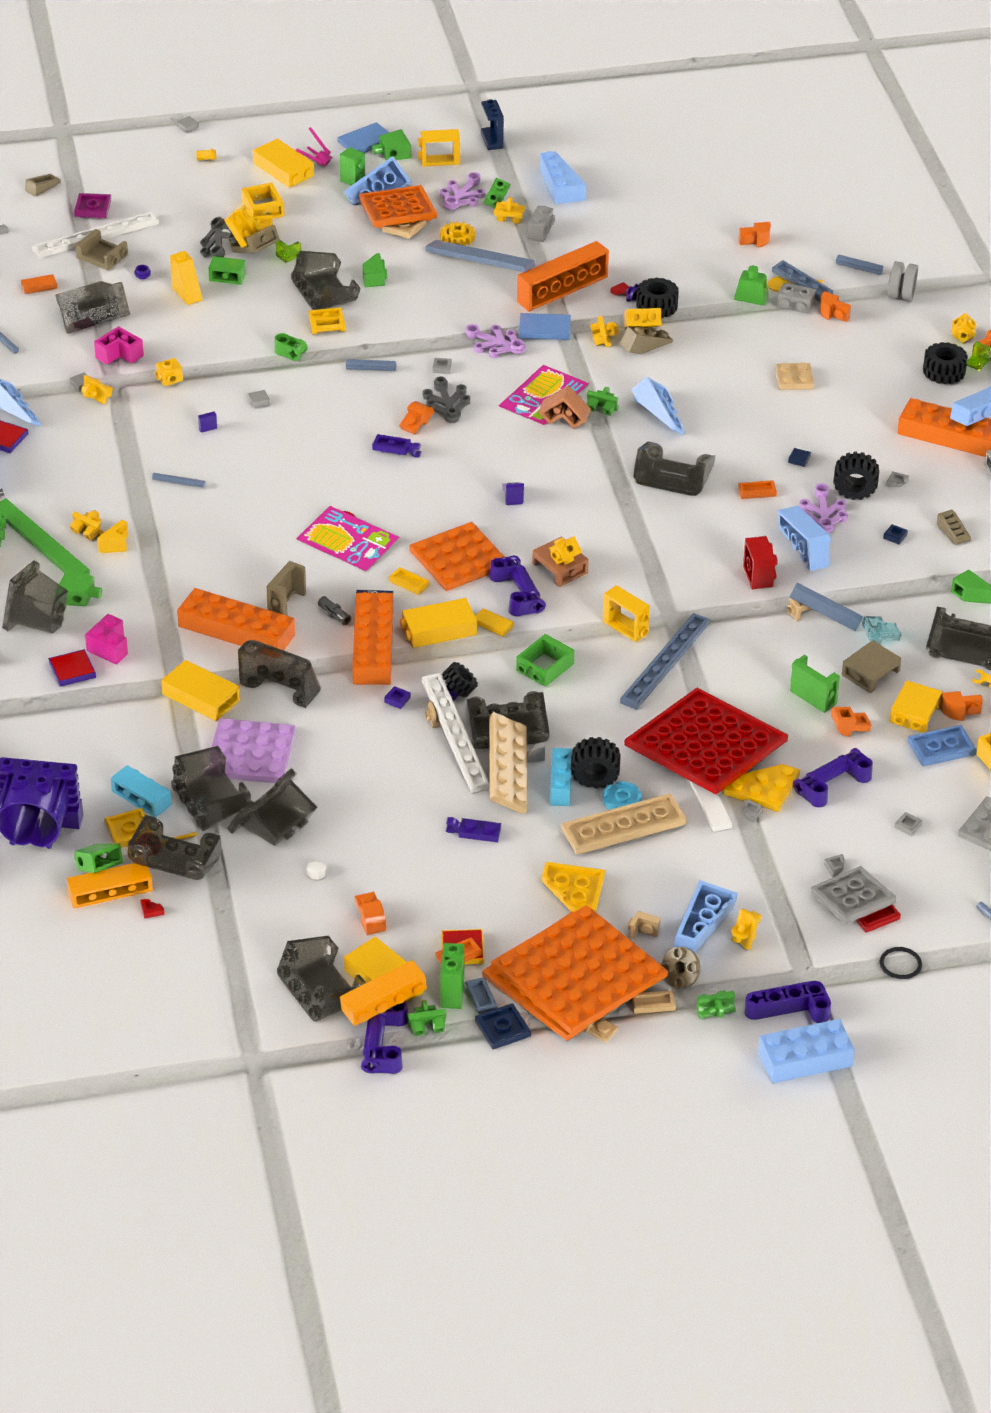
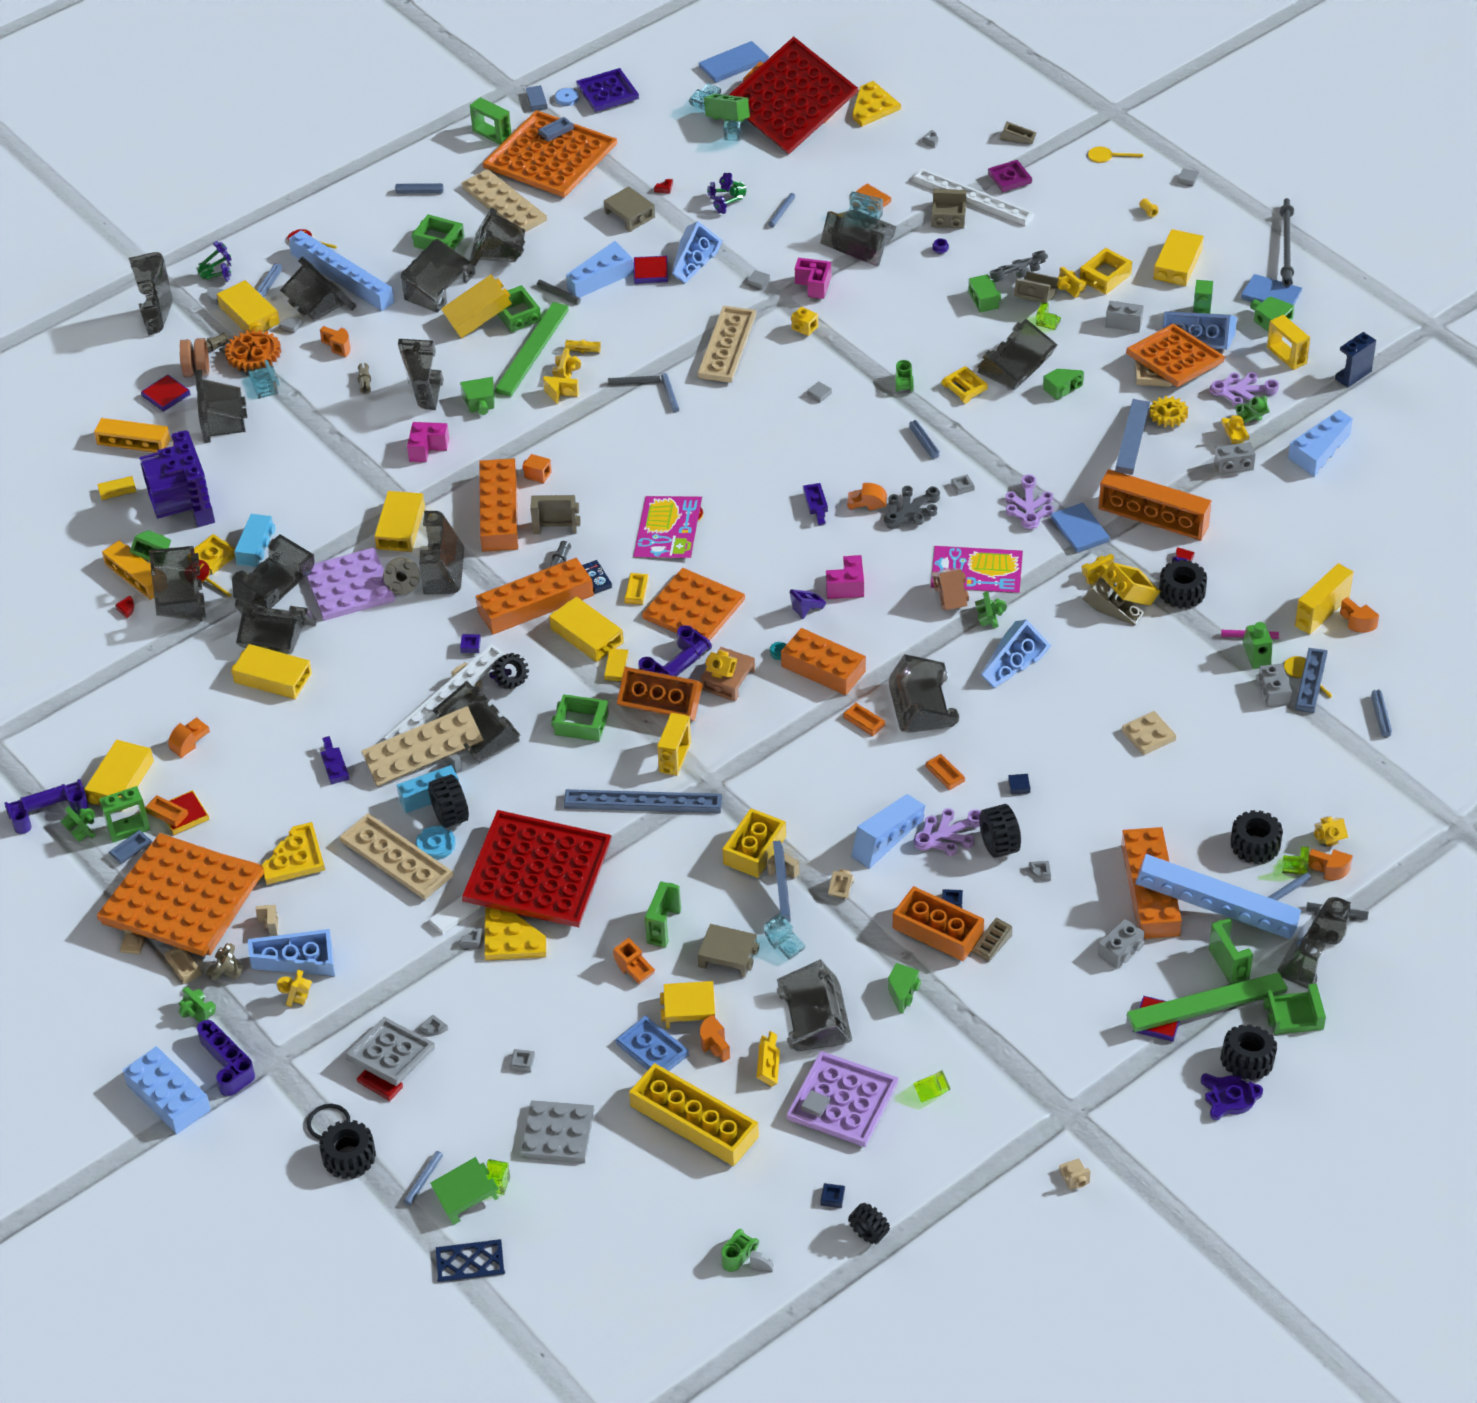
camera: 65 degrees right, 5 degrees up
(53, 286) = (866, 204): none -> clear light blue bracket
(68, 508) = (583, 346): none -> yellow pin
(72, 667) = (384, 437): red tile -> none
(95, 389) = (749, 290): yellow hips -> none
(113, 155) = (1103, 154): none -> yellow piece
(135, 502) = (633, 380): none -> dark grey bar
(150, 425) = (727, 344): none -> tan plate
(185, 278) = (939, 271): yellow slope -> none
(207, 421) = (757, 373): dark purple tile -> none
(209, 582) = (537, 468): none -> orange brick
(242, 224) = (1035, 267): yellow plate -> none
(280, 707) = (401, 575): none -> dark tan plate
(313, 978) = (91, 737): clear smoke windscreen -> none
(316, 870) = (225, 684): white tile -> none
(322, 157) = (1210, 275): dark pink plant -> none
(327, 212) = (1124, 316): none -> light grey brick
(329, 831) = (271, 671): none -> yellow brick
(355, 119) = (1287, 271): none -> dark grey bar
(383, 993) = (75, 777): light orange brick -> none
(502, 1026) = (101, 876): dark blue tile -> none
(505, 458) = (846, 581): none -> dark pink brick
(551, 527) = (775, 650): none -> teal tile
(562, 601) = (659, 693): none -> orange brick
(589, 505) = (823, 661): none -> orange brick
(666, 510) = (864, 719): none -> orange tile
(727, 293) = (1240, 633): none -> dark pink bar
(732, 238) = (1323, 598): none -> yellow brick
(759, 562) = (815, 809): red brick -> none
(768, 609) = (753, 842): none -> yellow brick
(814, 786) = (575, 987): dark purple piece -> none
(832, 307) = (1283, 716): orange brick -> none
(842, 581) = (841, 884): none -> tan bracket
(905, 281) = (1363, 752): light grey wheel -> none
(924, 544) = (938, 923): none -> orange brick
(948, 953) = (351, 1162): none -> black tyre

